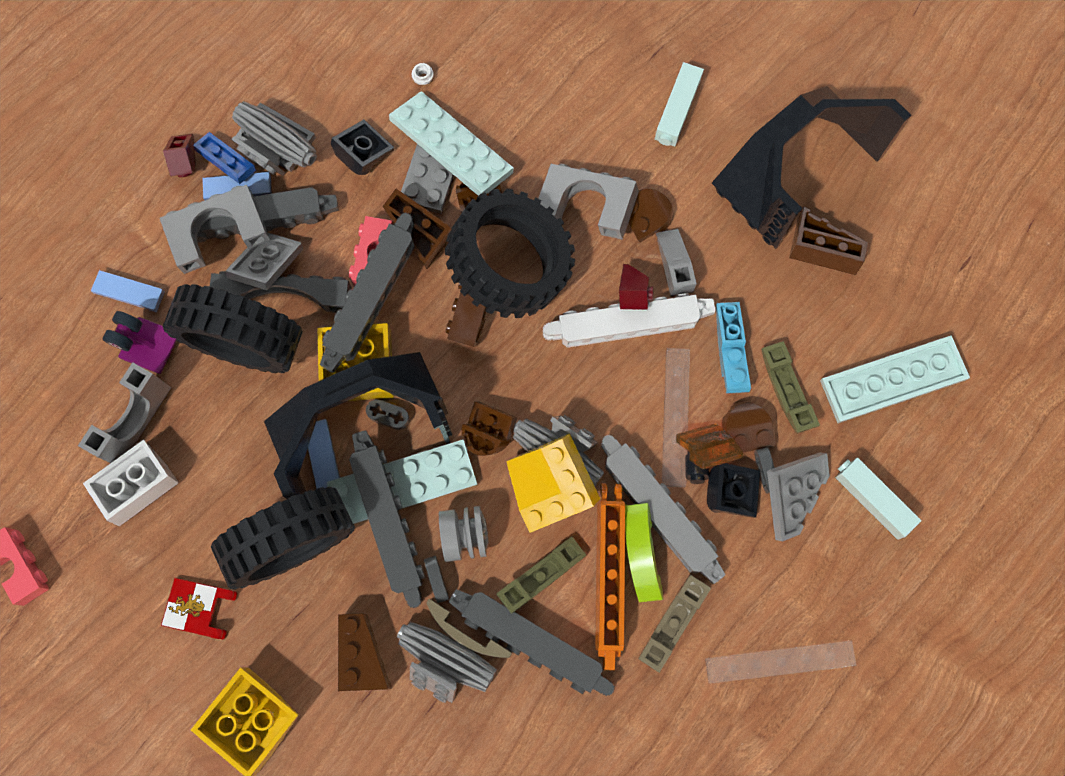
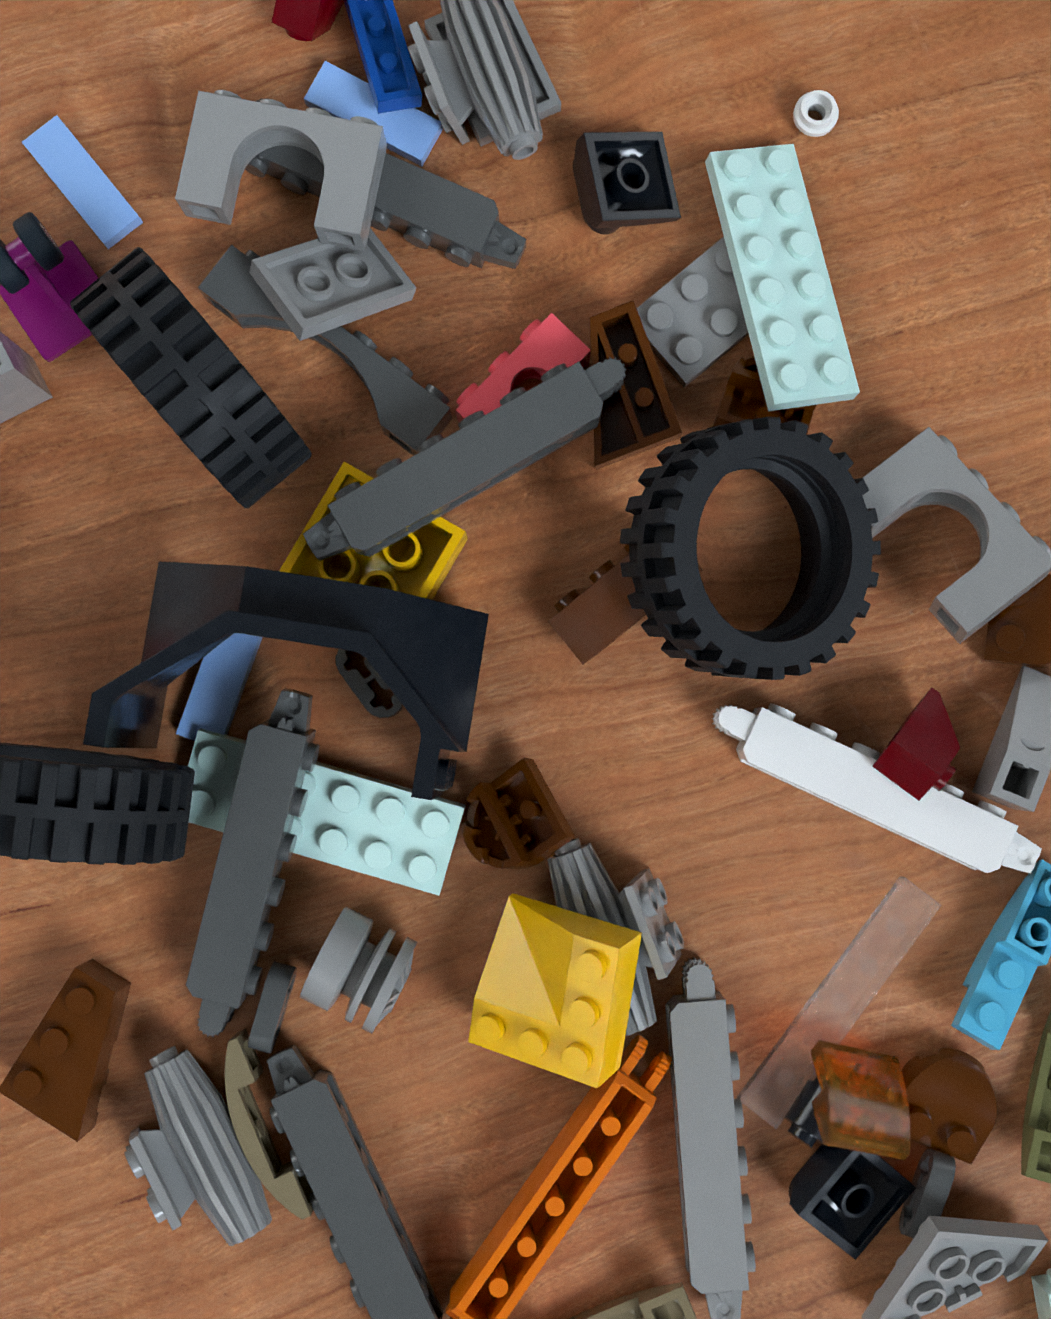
camera: 30 degrees right, 10 degrees up
(541, 575) = (441, 1114): olive slope -> none
(641, 553) = (630, 1194): lime slope -> none

